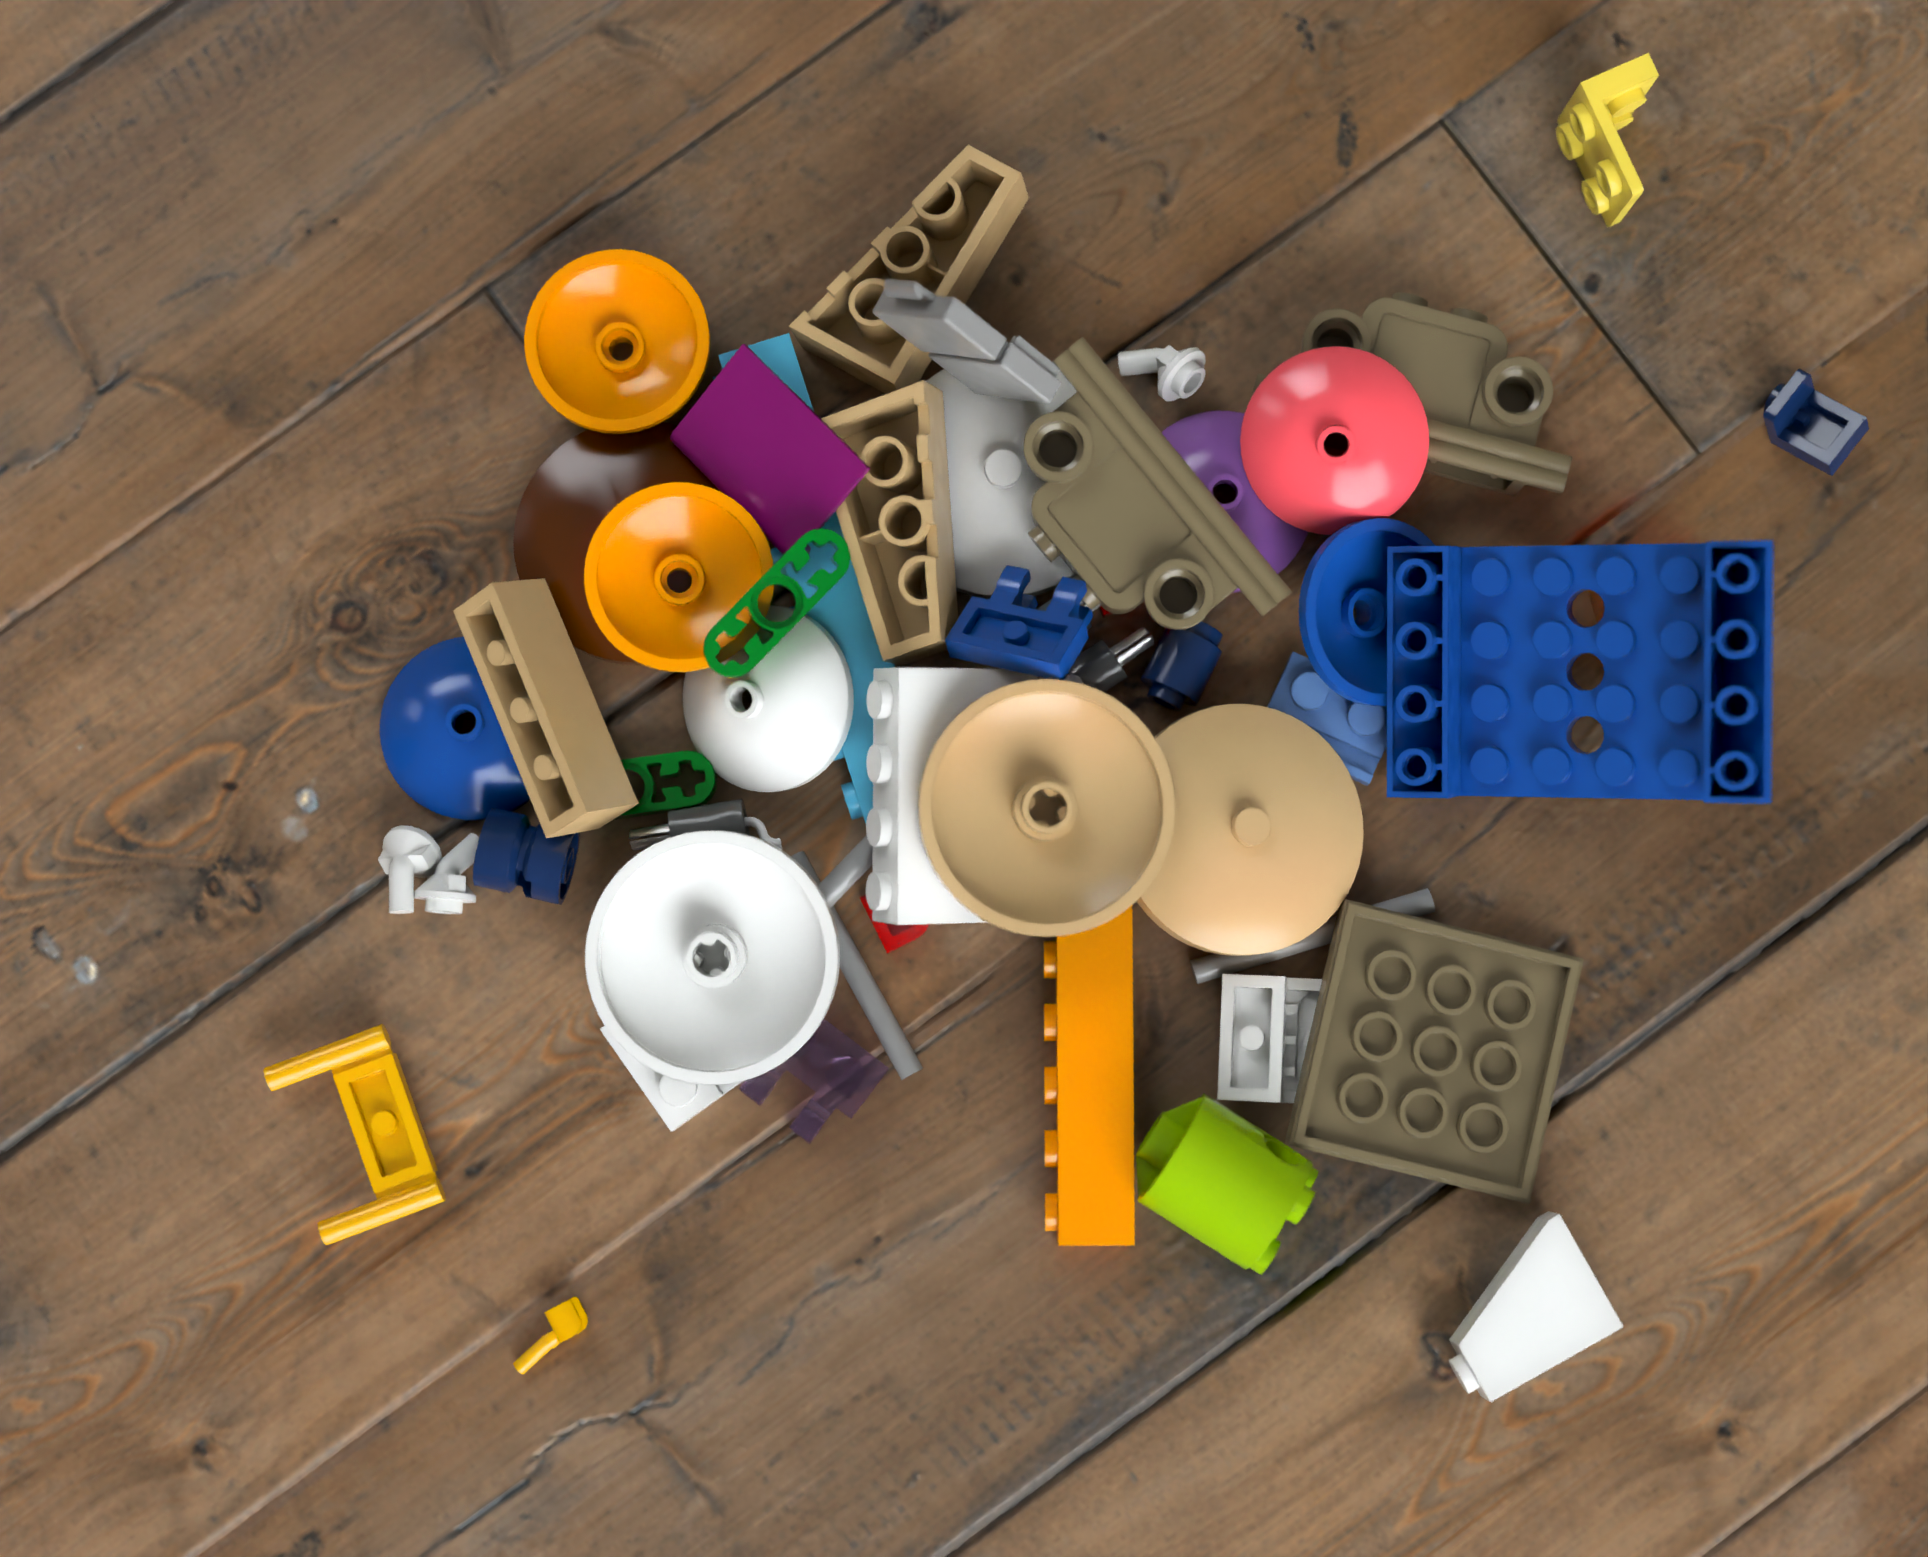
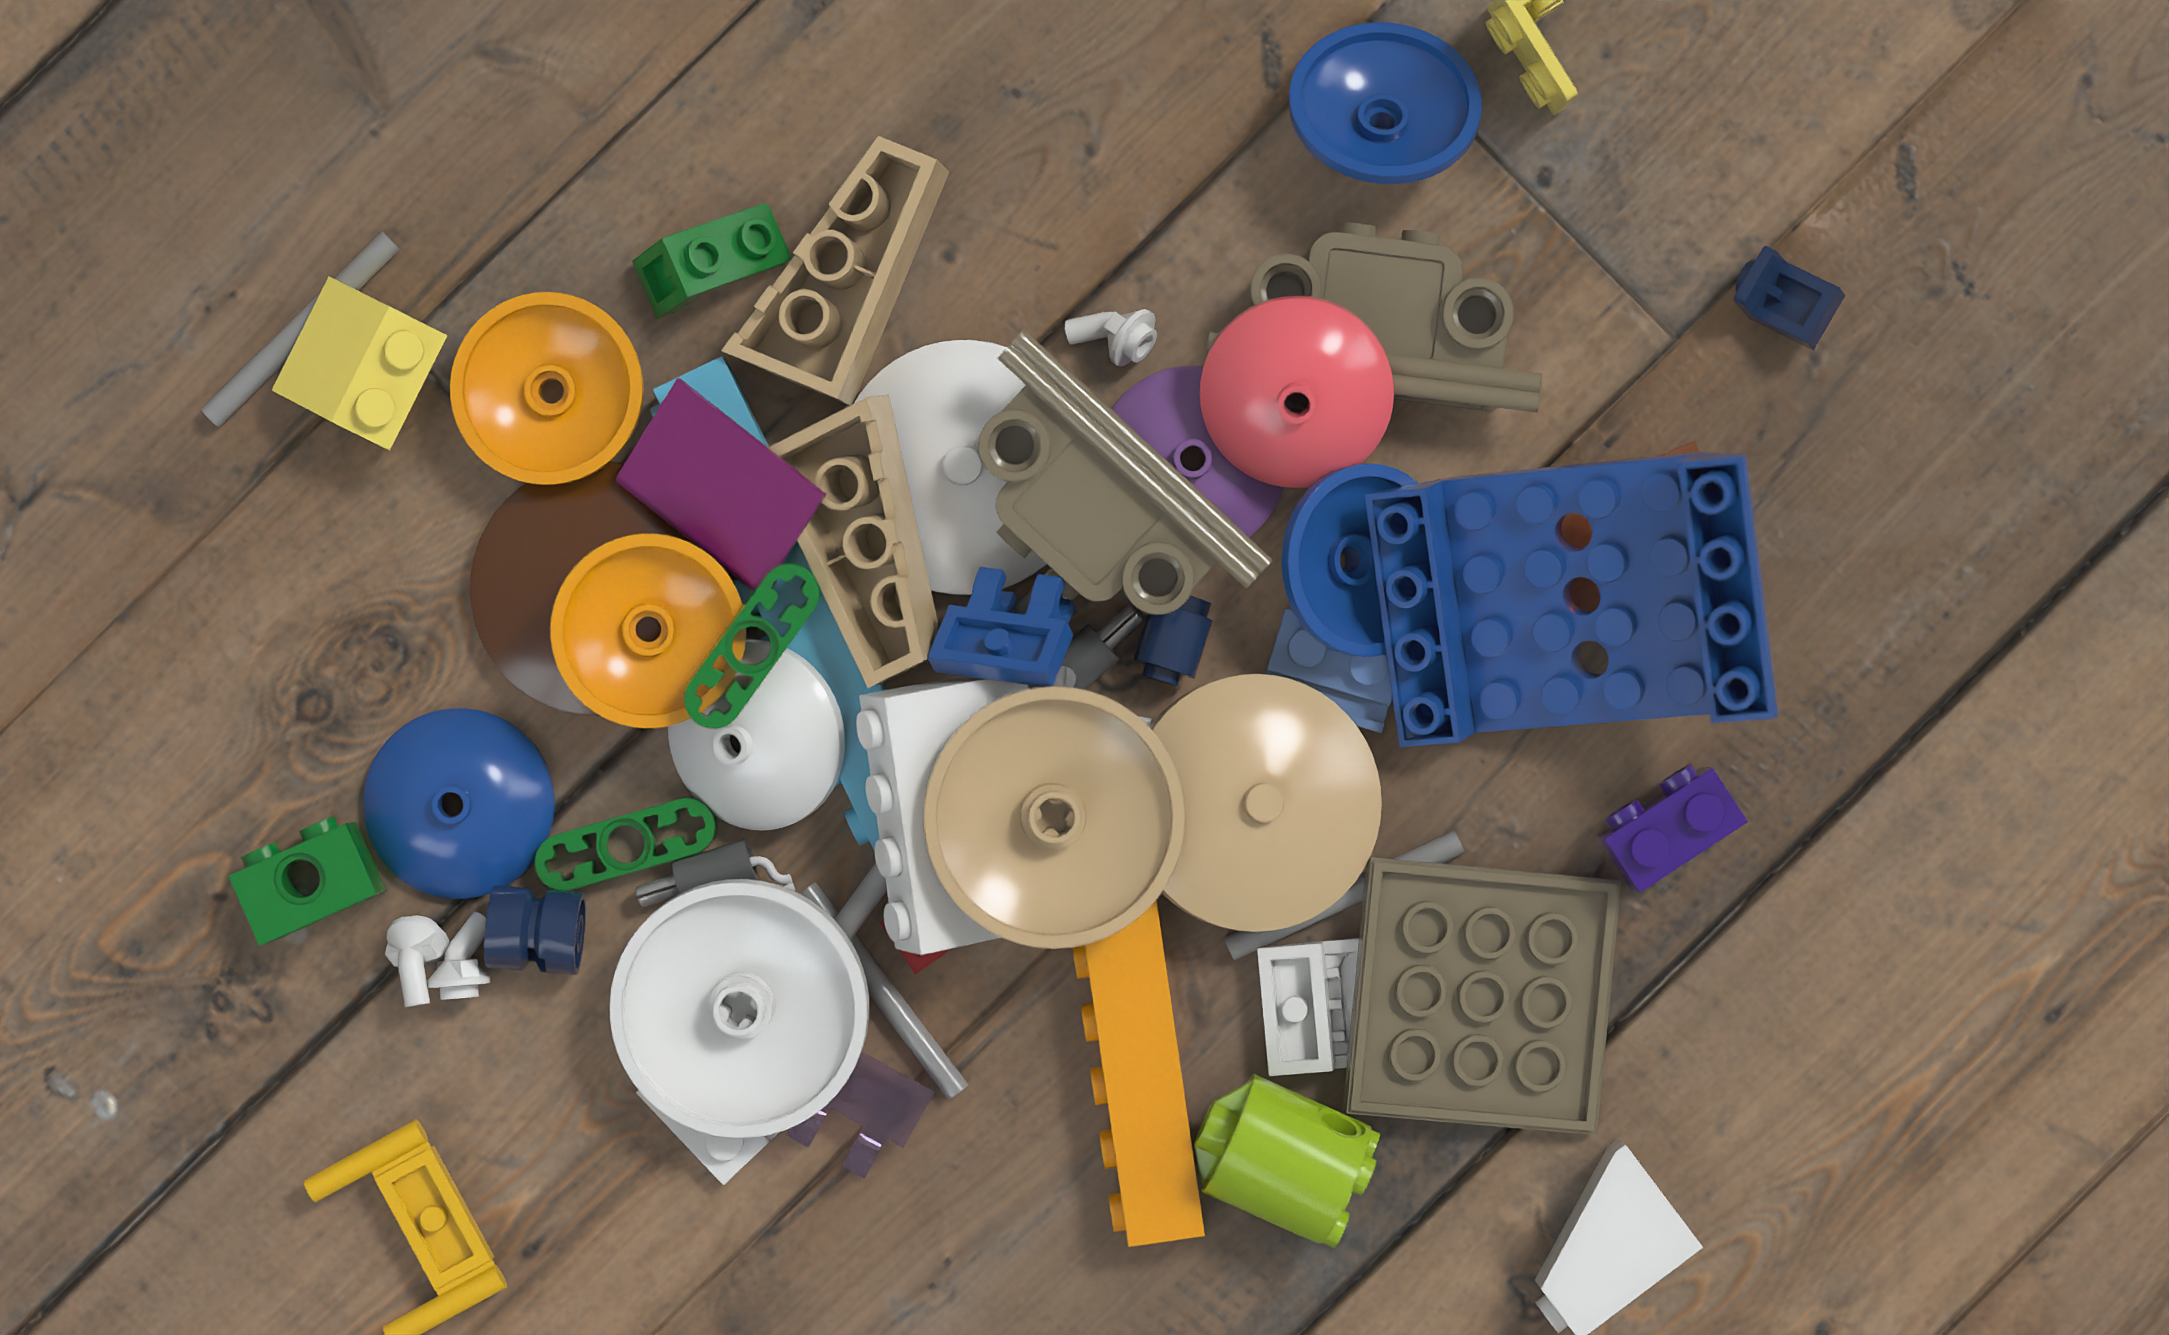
camera: 10 degrees left, 5 degrees up
(351, 783) = (270, 897): none -> green brick
(393, 260) = (276, 352): none -> light grey bar
(444, 294) = (359, 363): none -> light yellow slope
(545, 707) = (531, 779): tan brick -> none
(787, 242) = (710, 257): none -> green bracket
(967, 344) = (908, 357): light grey piece -> none
(1453, 185) = (1391, 81): none -> blue dish
(1641, 913) = (1670, 828): none -> dark purple brick

